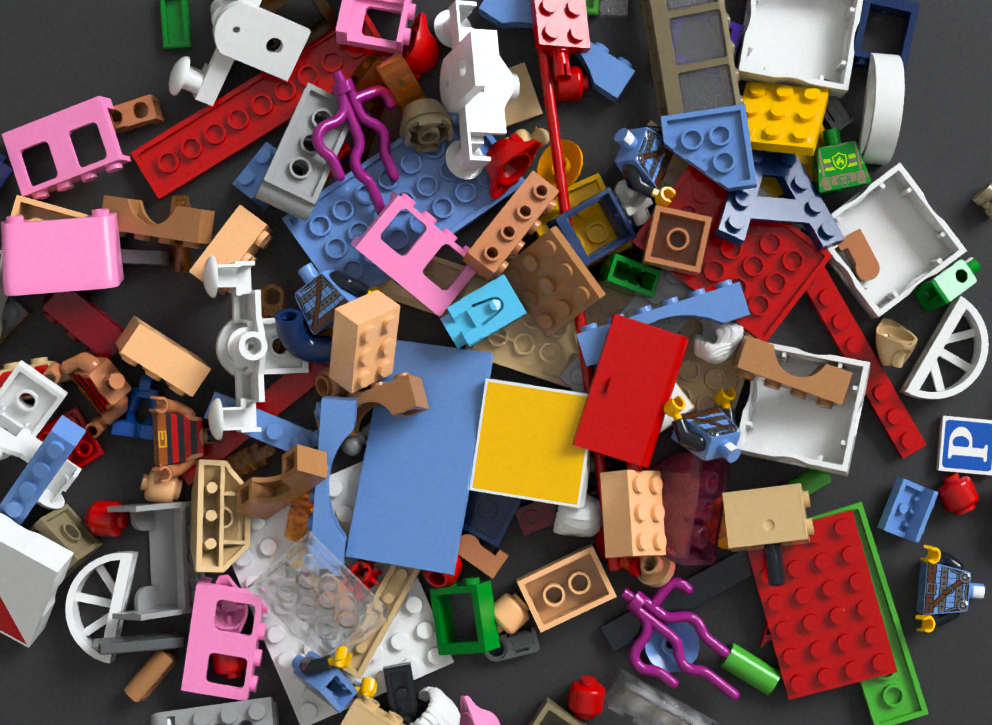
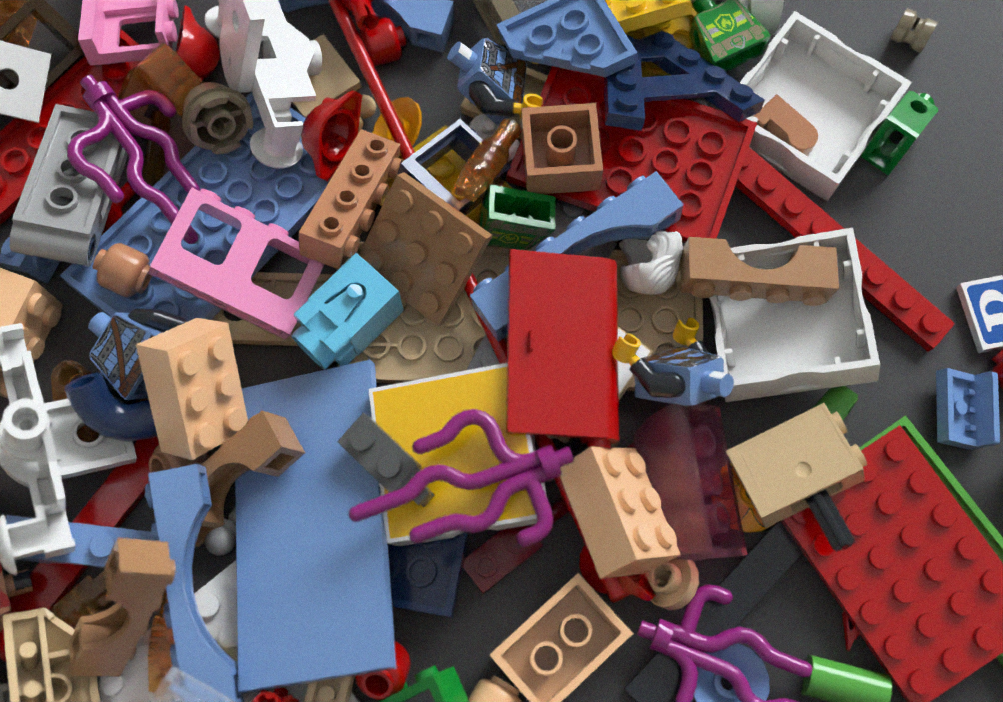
camera: 10 degrees left, 15 degrees down
(331, 233) = (122, 270): none -> nougat head
(480, 556) = (417, 633): nougat leg -> none
(484, 434) = (382, 456): none -> dark grey hinge
(575, 474) = (523, 470): none -> magenta plant
(579, 521) = (556, 551): white hair -> none
(619, 232) = (487, 161): none -> clear orange hinge
(894, 343) = (870, 214): tan hat -> none
(934, 348) = (962, 175): white window -> none

